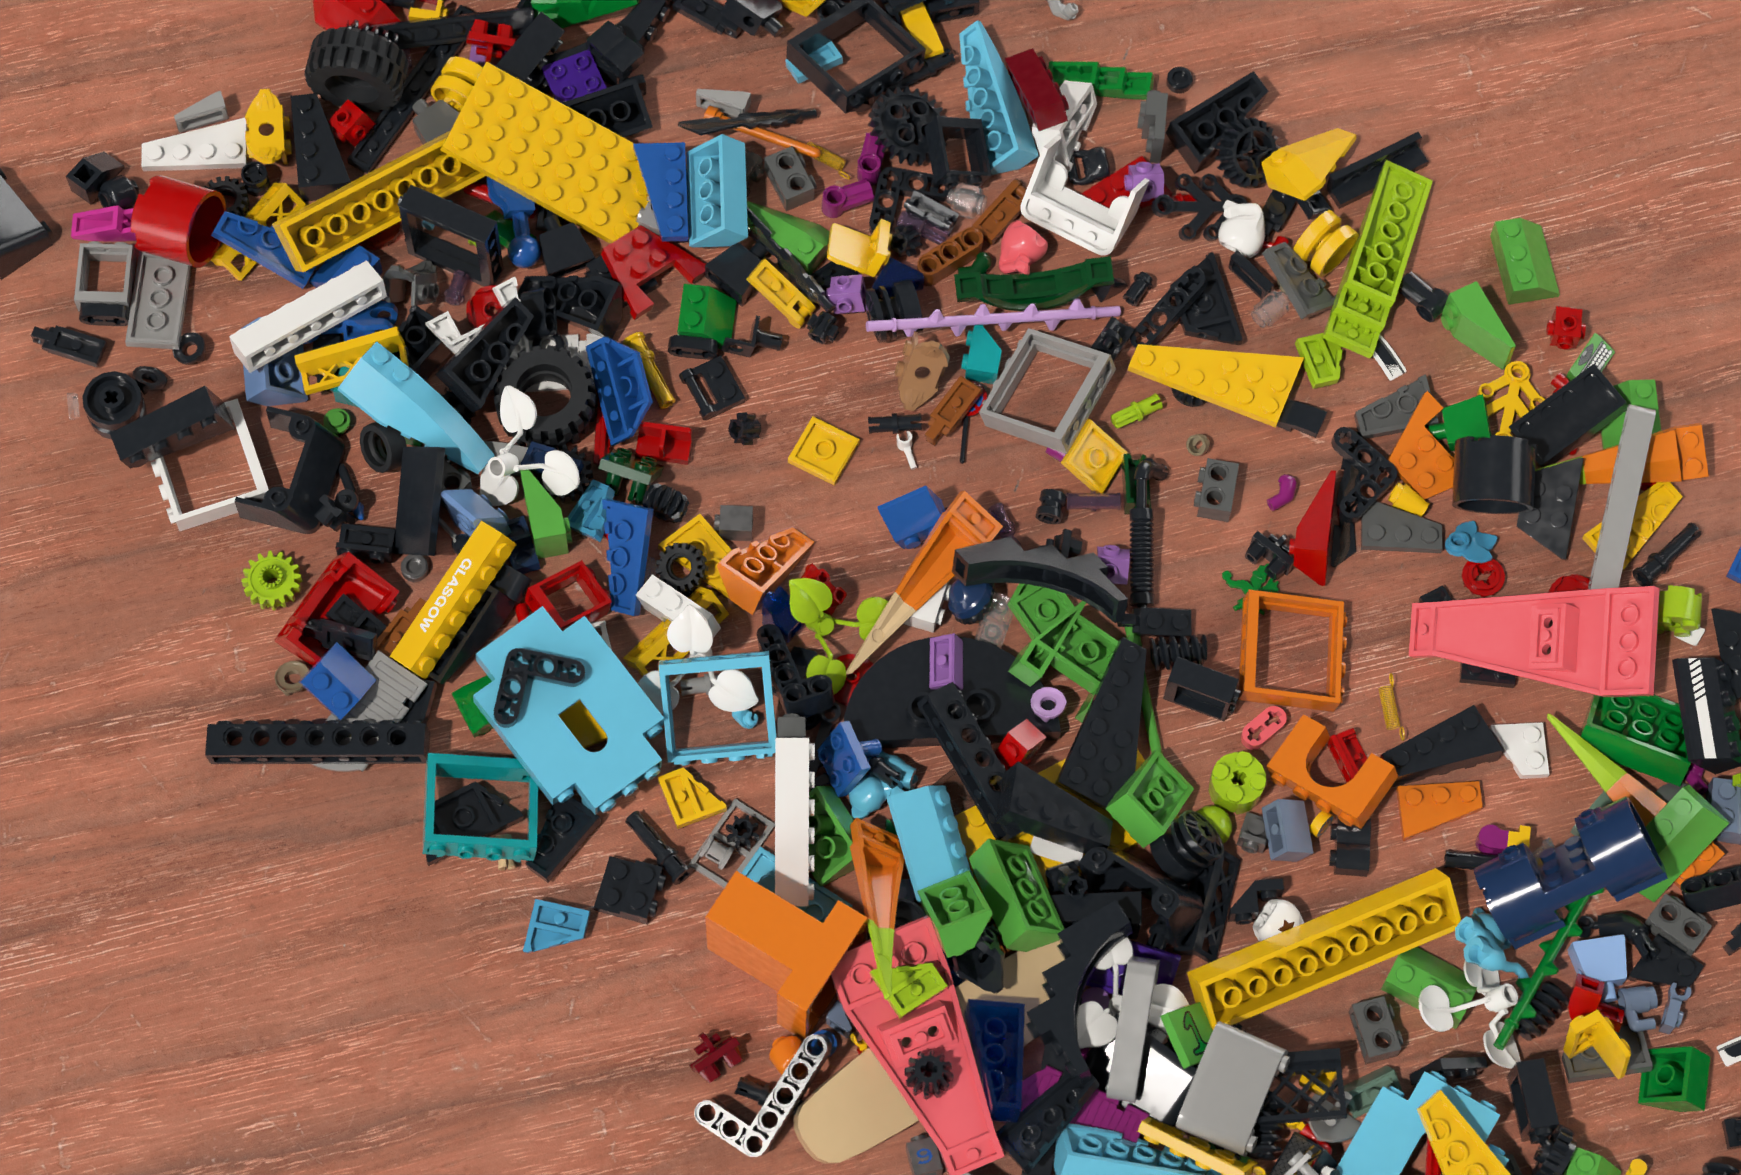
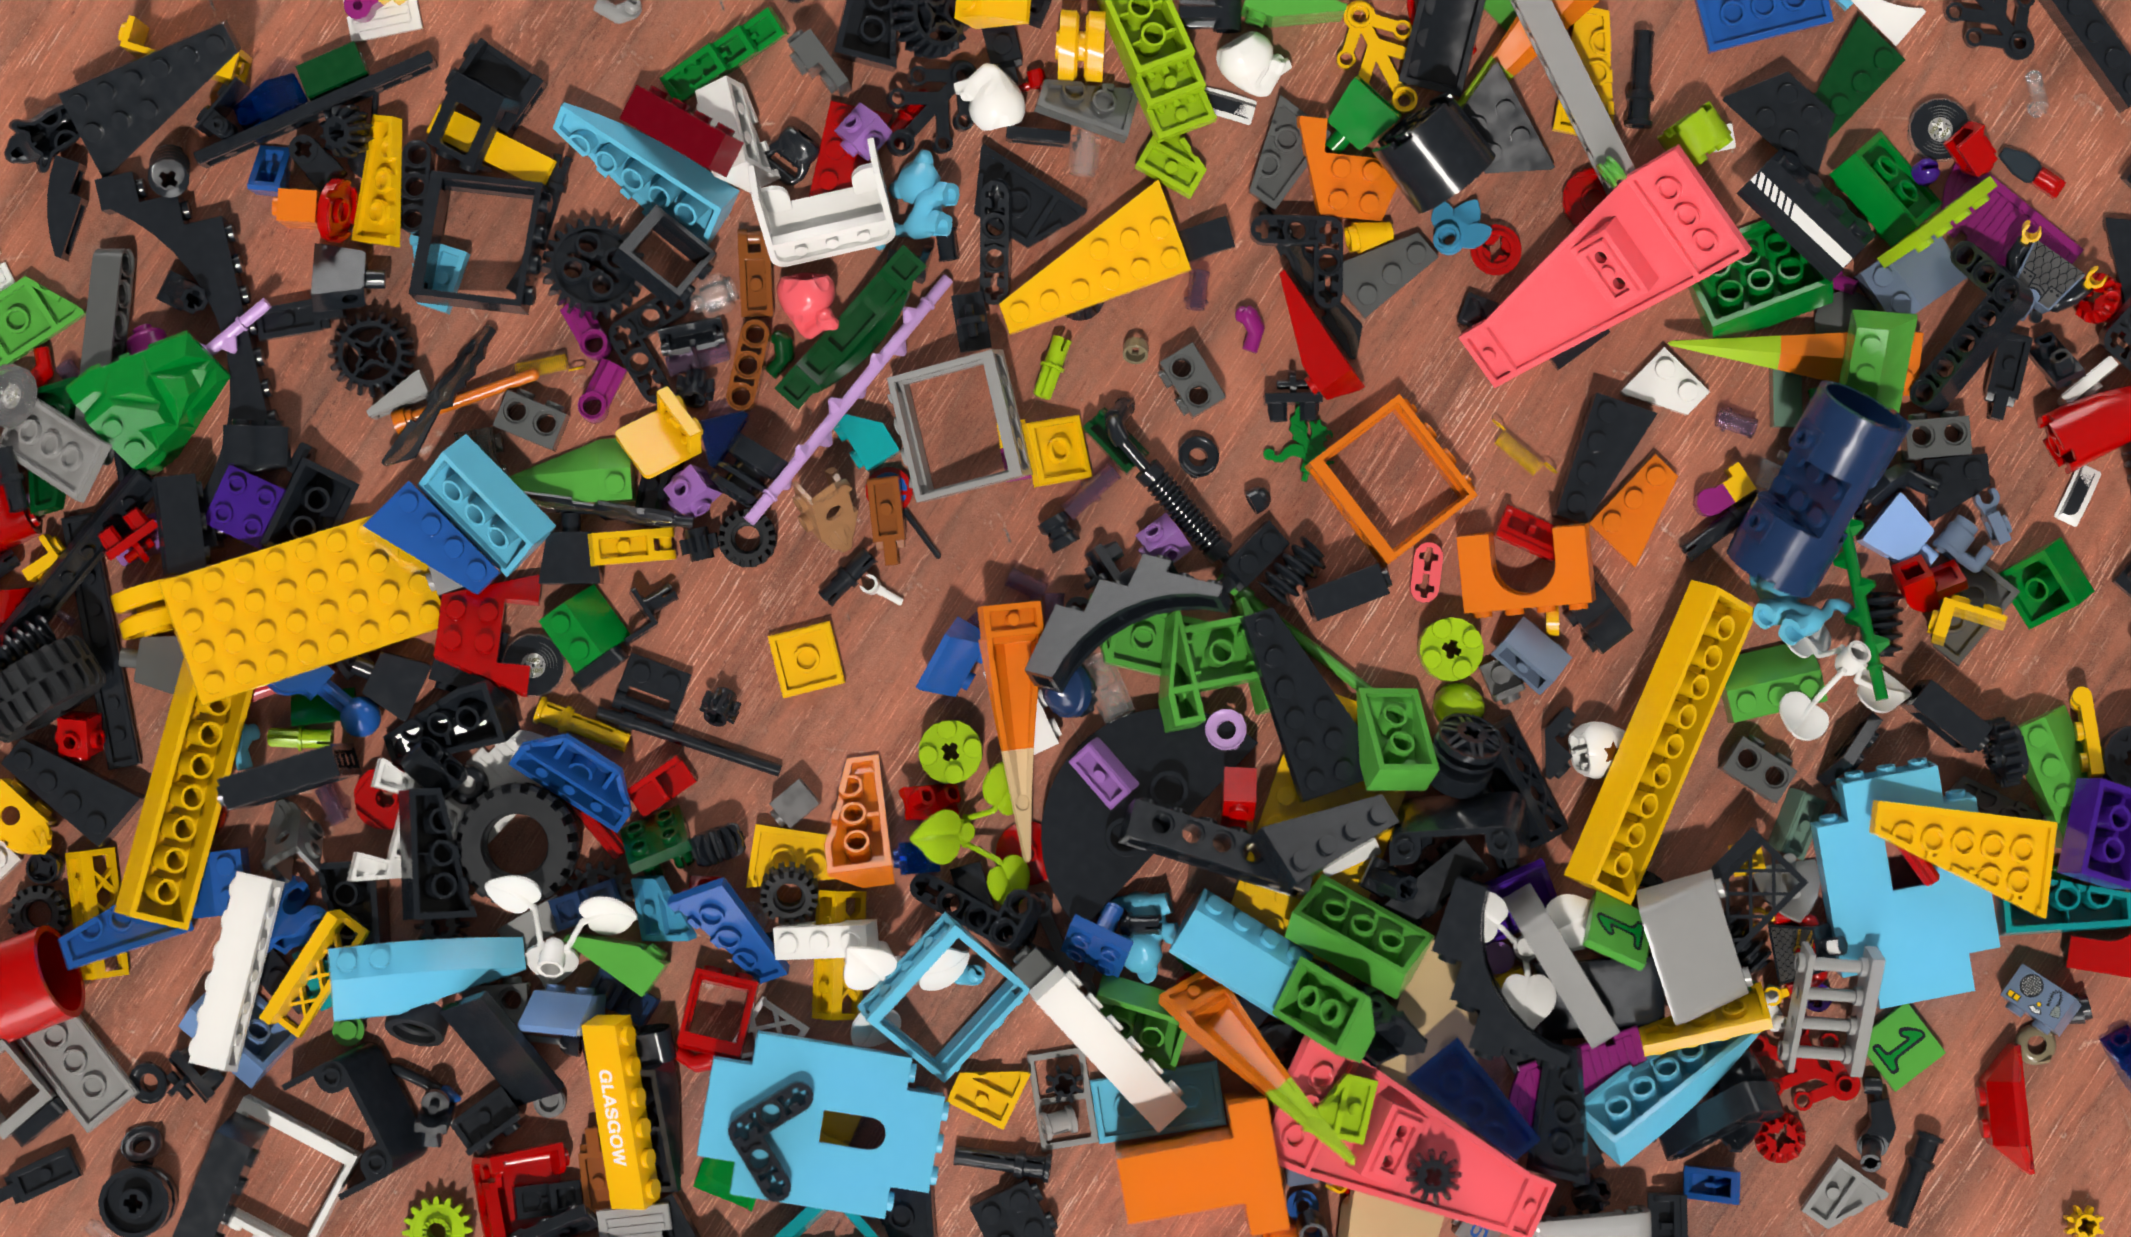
camera: 40 degrees left, 20 degrees up
(219, 376) = (202, 1085): none -> black hips
(662, 319) = (545, 659): none -> black tile
(681, 394) = (628, 721): none -> black bar
(742, 57) = (381, 341): none -> black gear
(854, 337) = (747, 558): none -> black tyre
(866, 560) = (932, 755): none -> lime brick
(1150, 250) = (922, 187): none -> medium azure animal
(1184, 529) = (1207, 447): none -> black piece
(1196, 593) = (1258, 499): none -> black hinge
(1264, 446) = (1197, 290): none -> pin
(1423, 342) = (1251, 64): none -> white piece
(1549, 807) = (1735, 422): none -> pin
(1600, 575) = (1611, 171): none -> bright green bush

